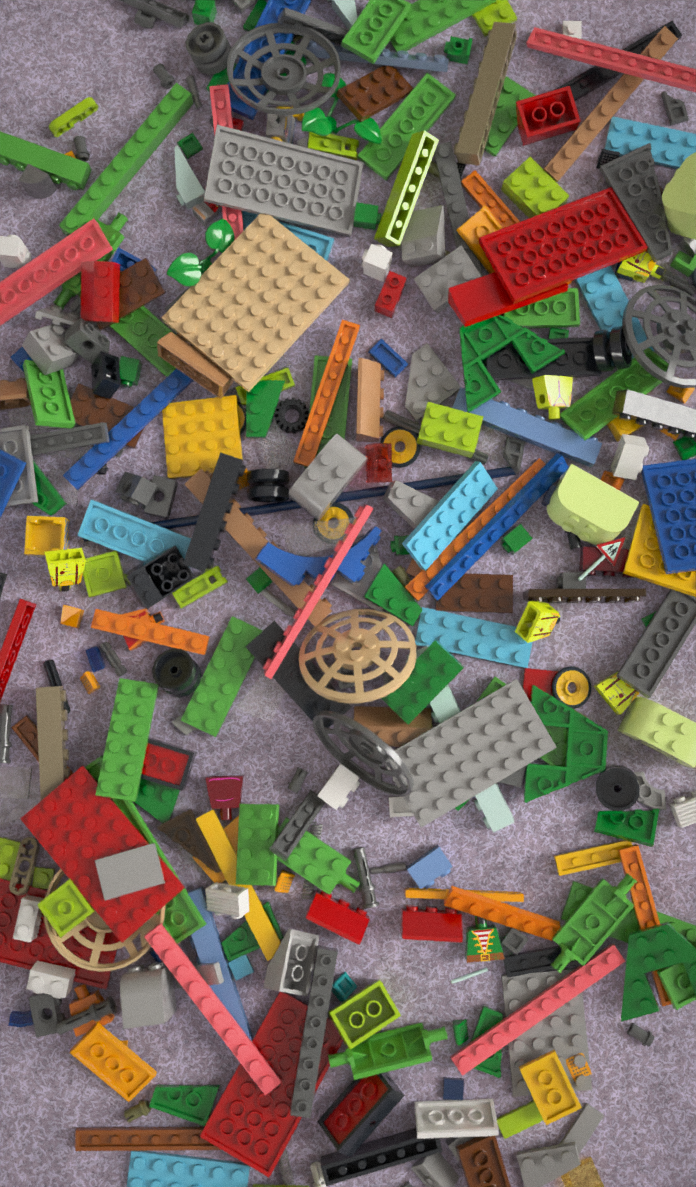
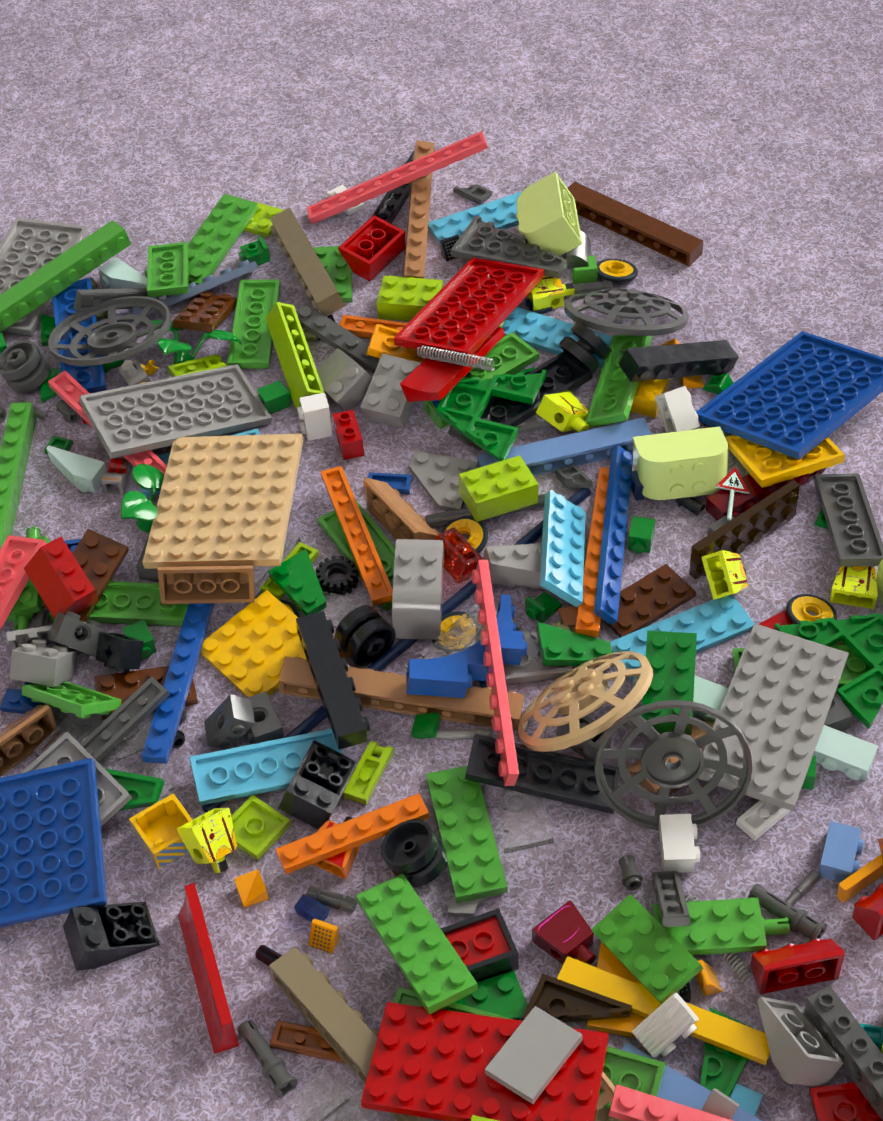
camera: 30 degrees left, 35 degrees down
(503, 297) = (456, 362): none -> light grey piece

